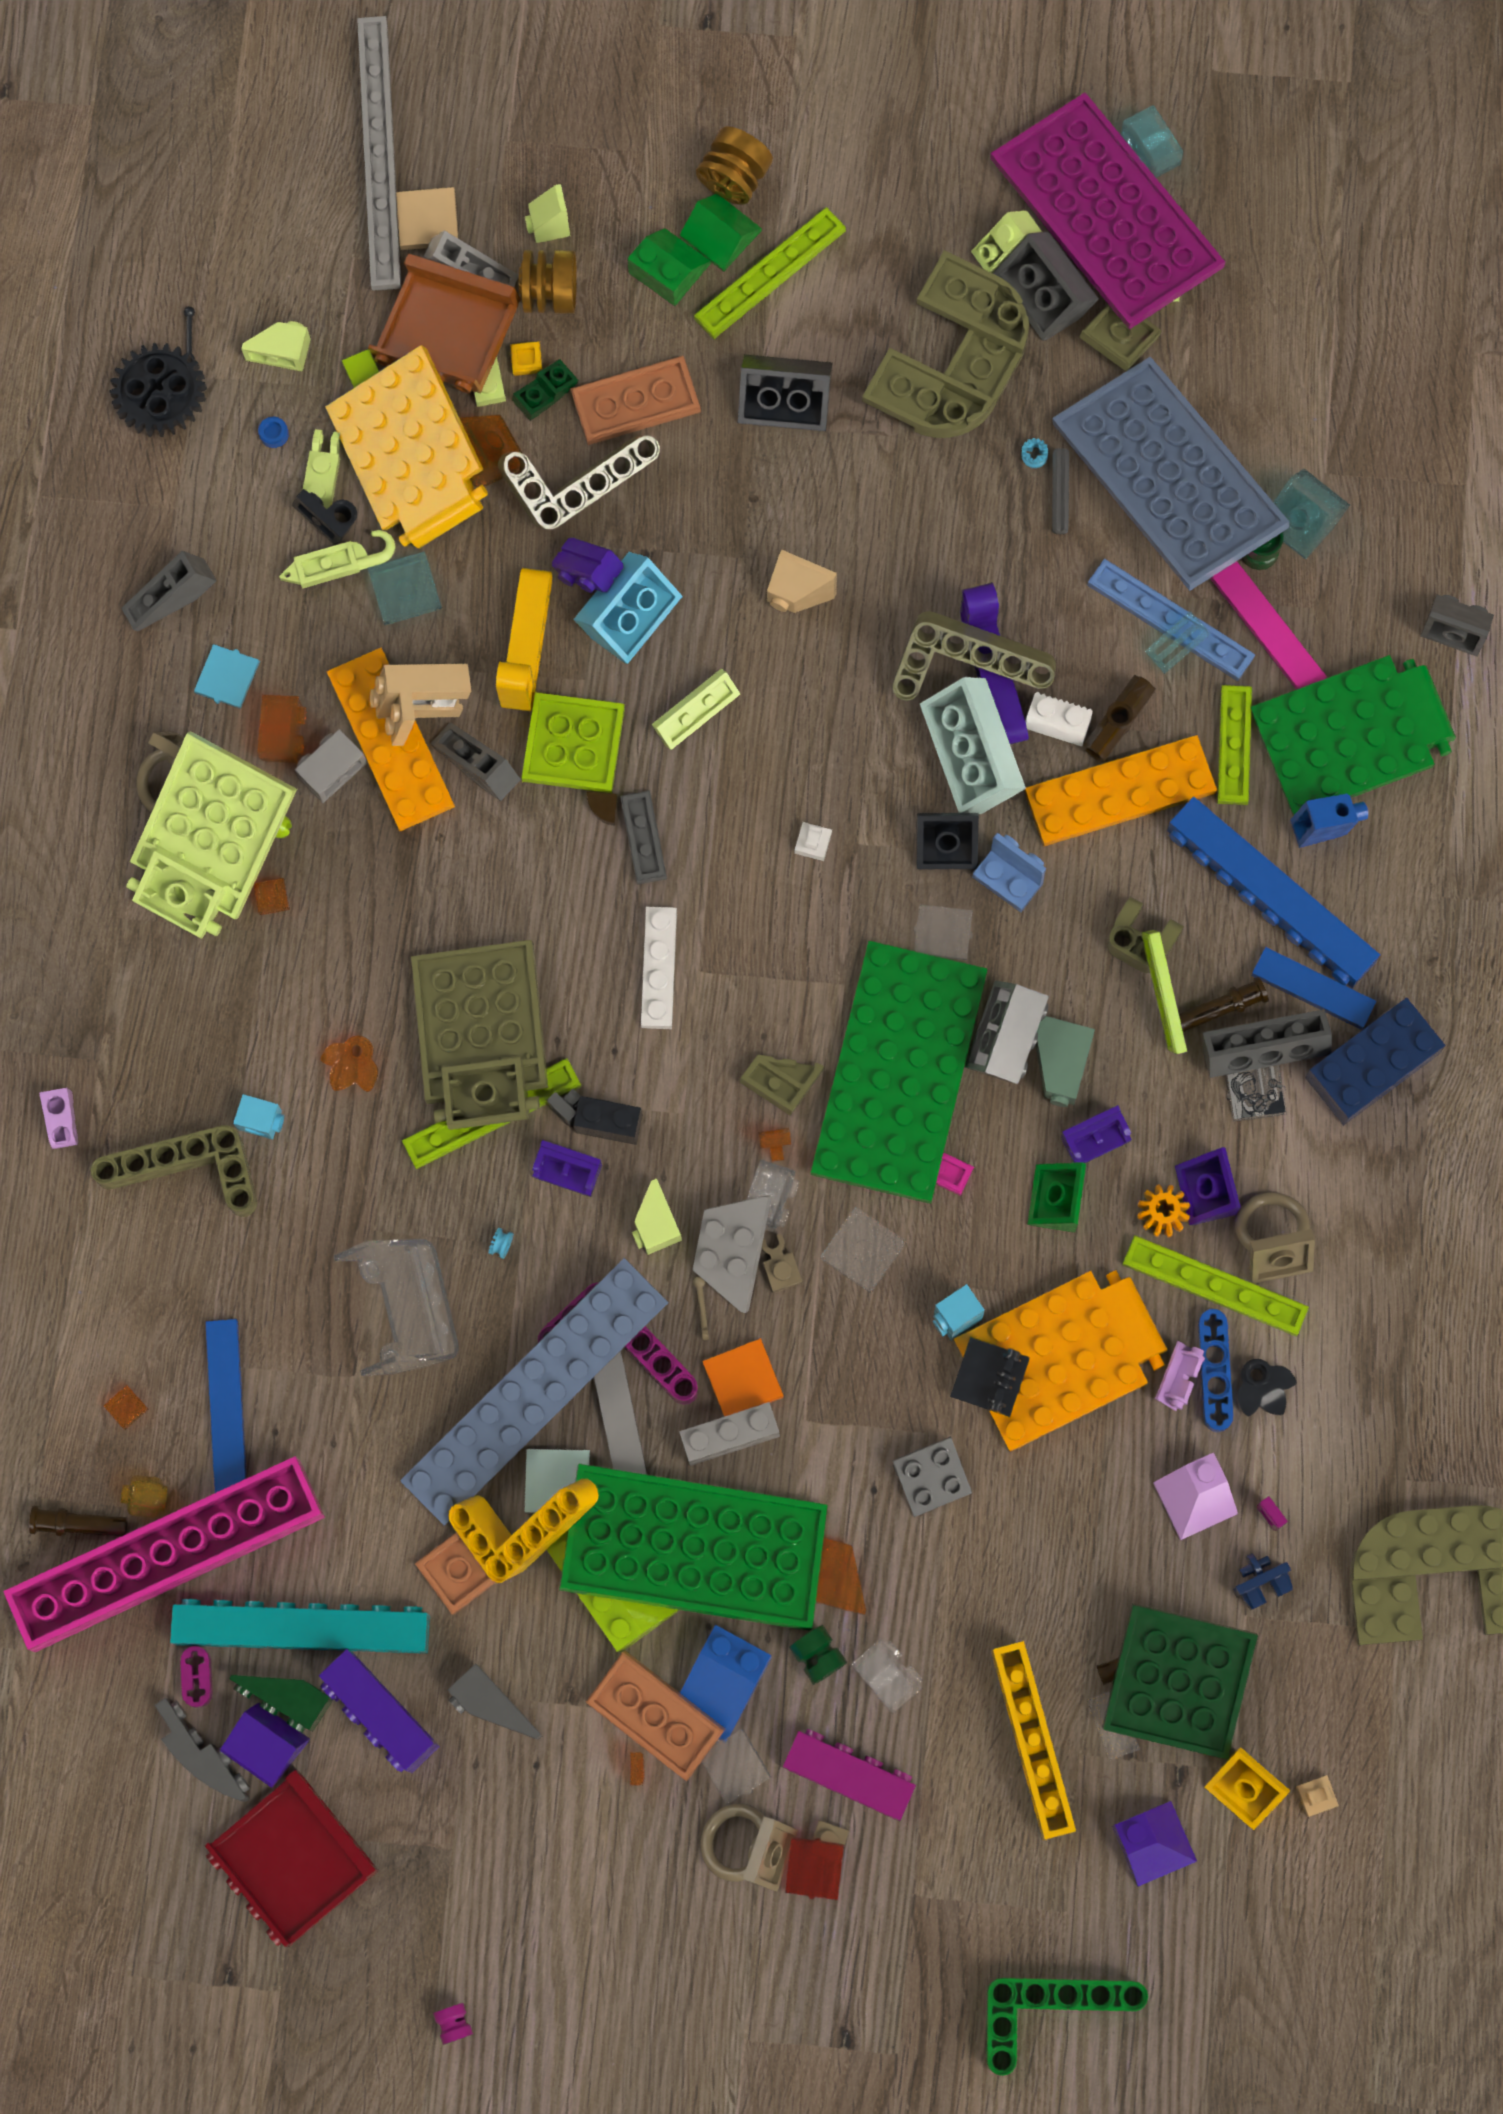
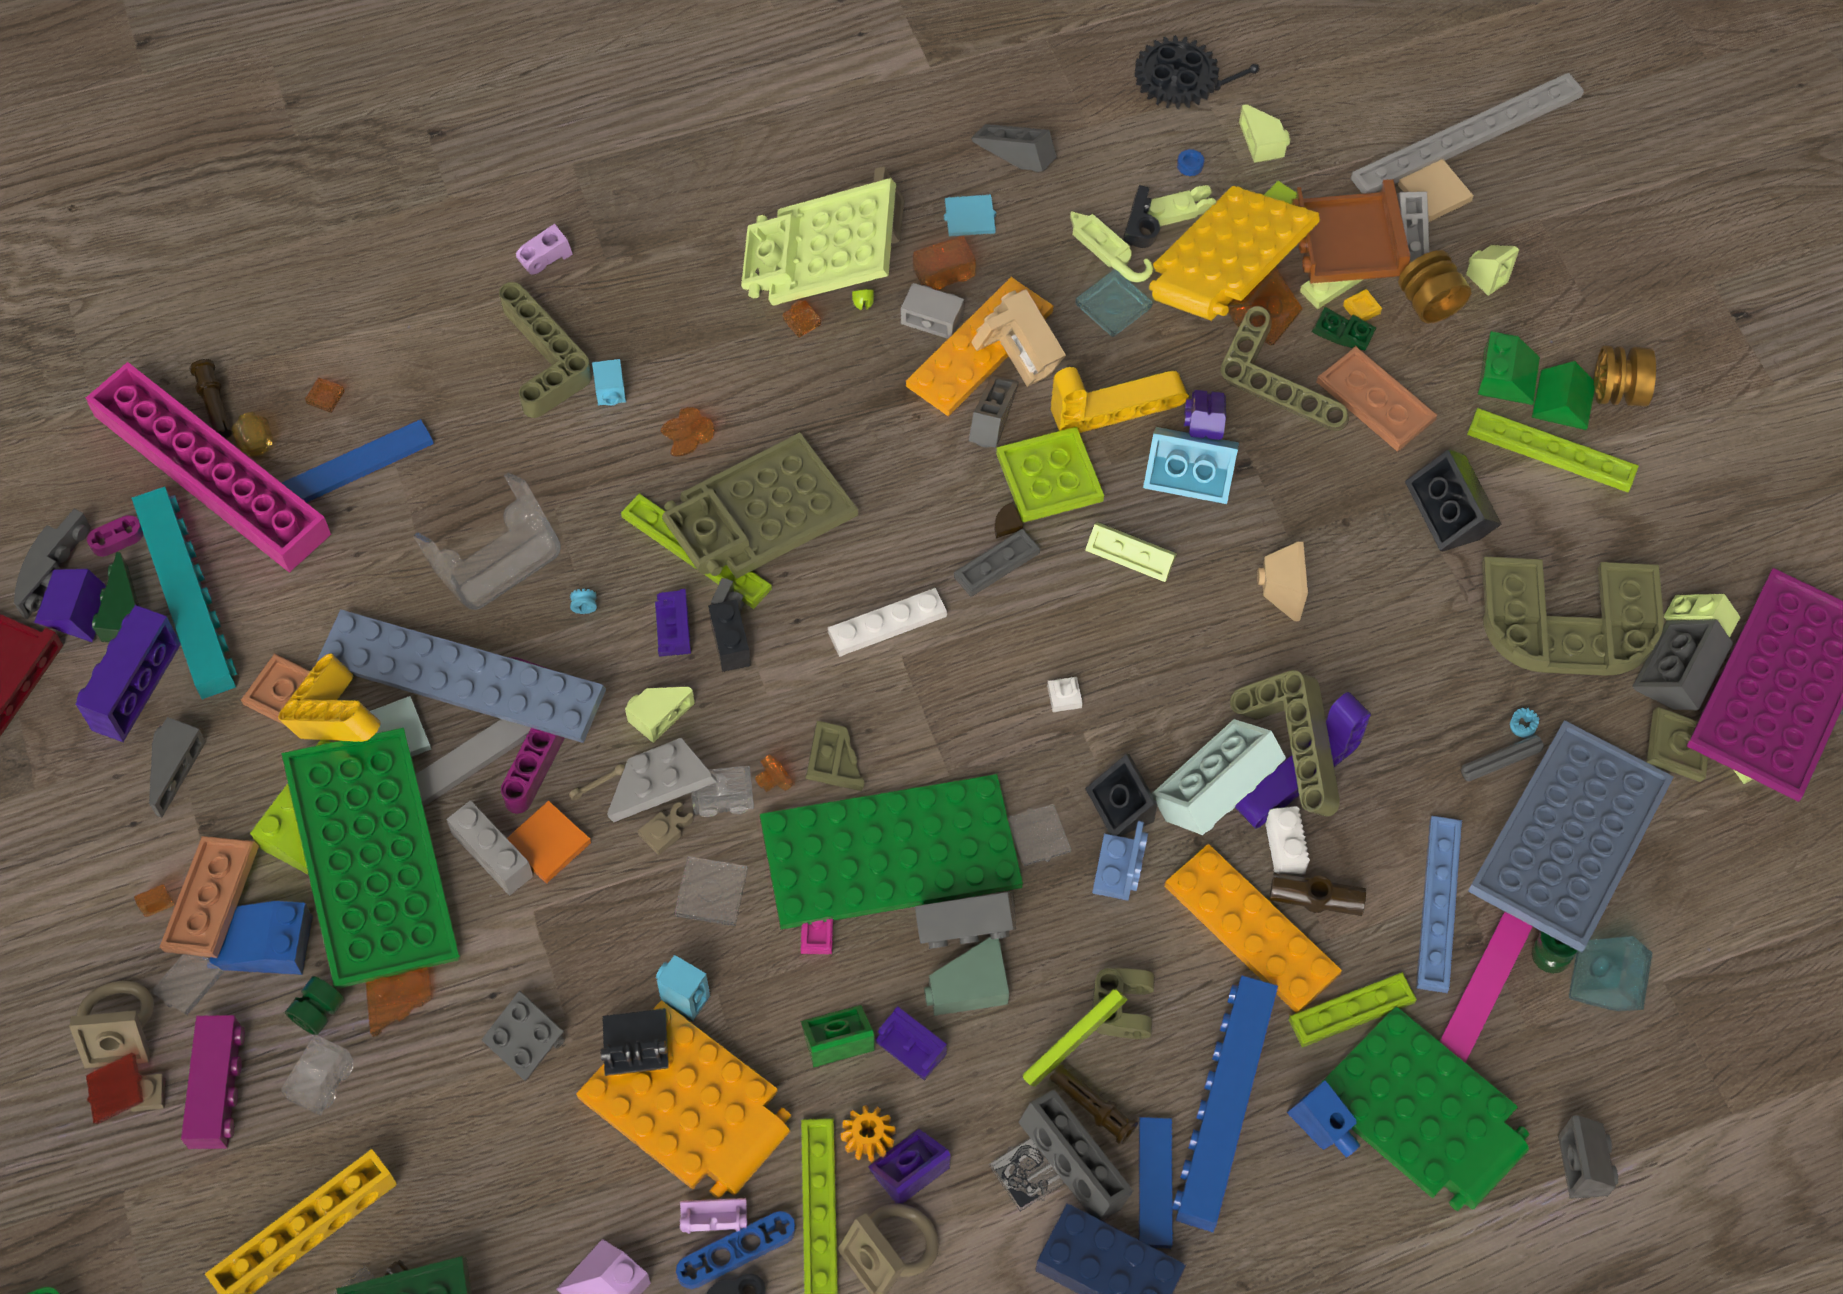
camera: 60 degrees right, 15 degrees down
(1165, 637) = (1395, 906): clear light blue tile -> none

